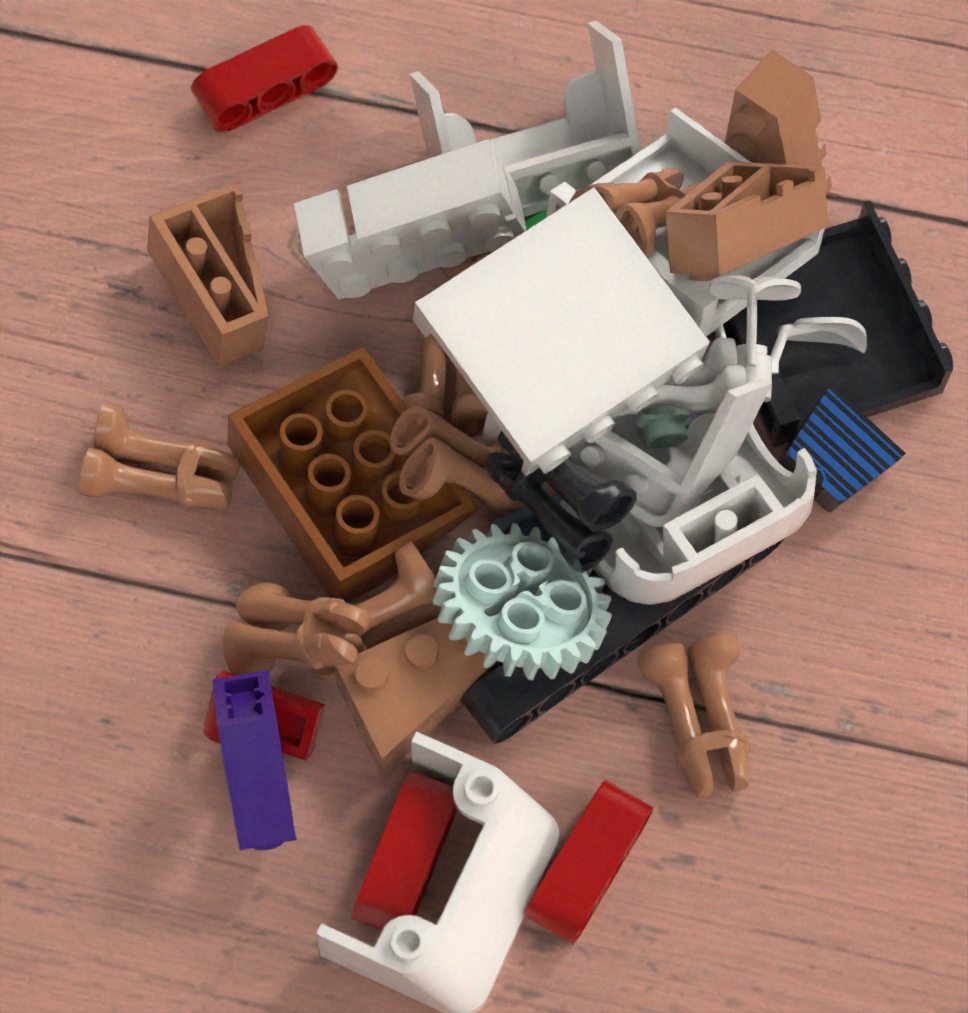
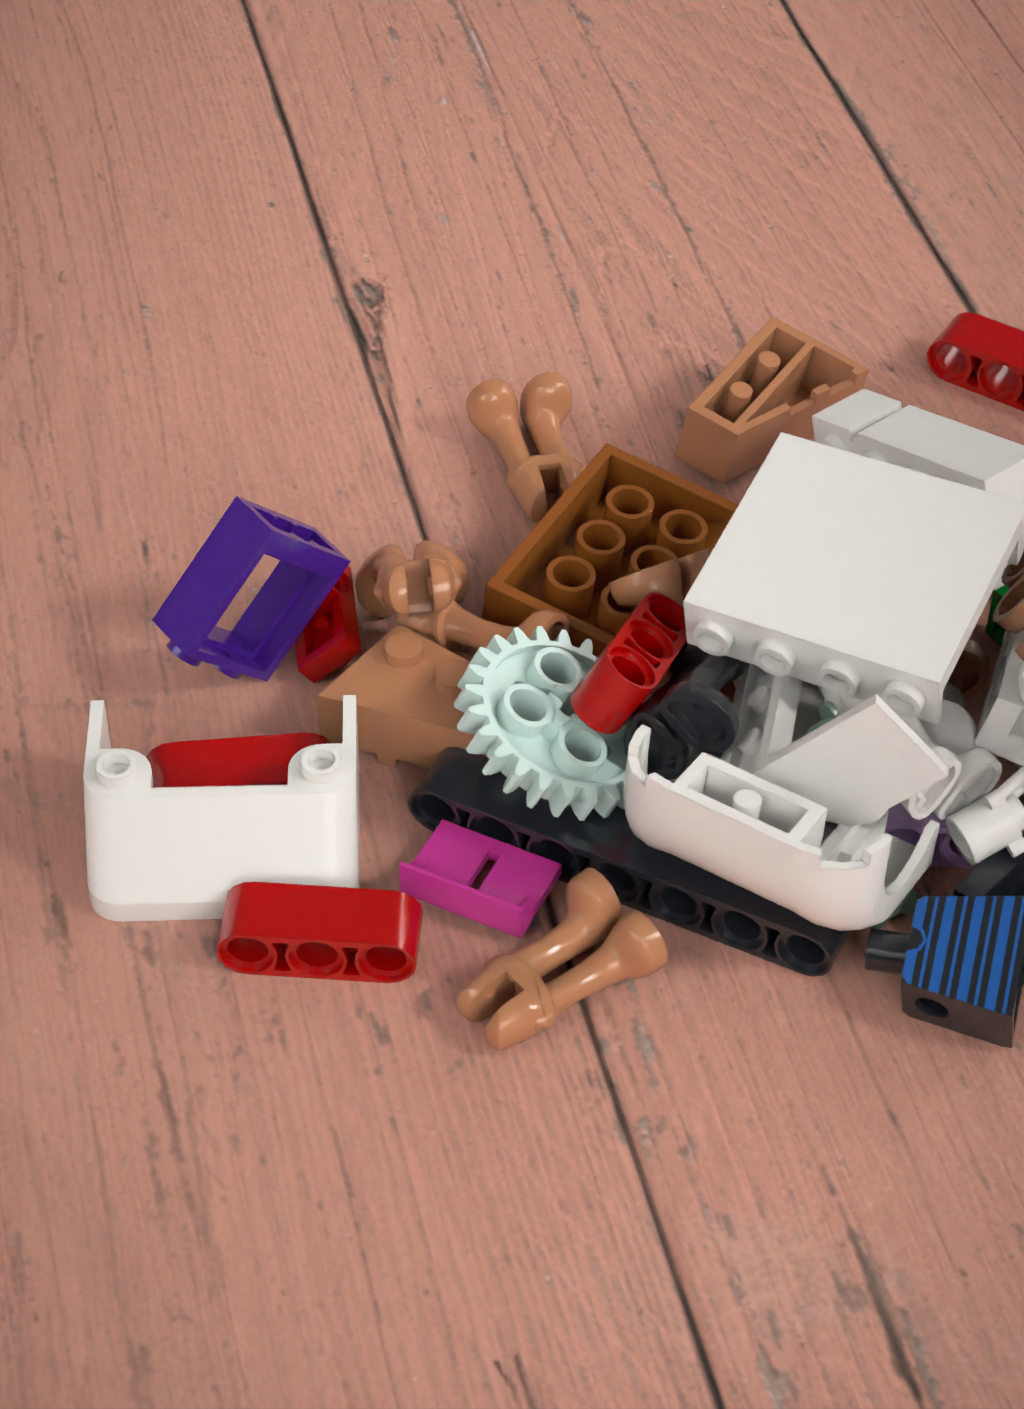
camera: 65 degrees right, 20 degrees down
(516, 523) = (630, 664): none -> red beam
(606, 707) = (451, 864): none -> dark pink piece

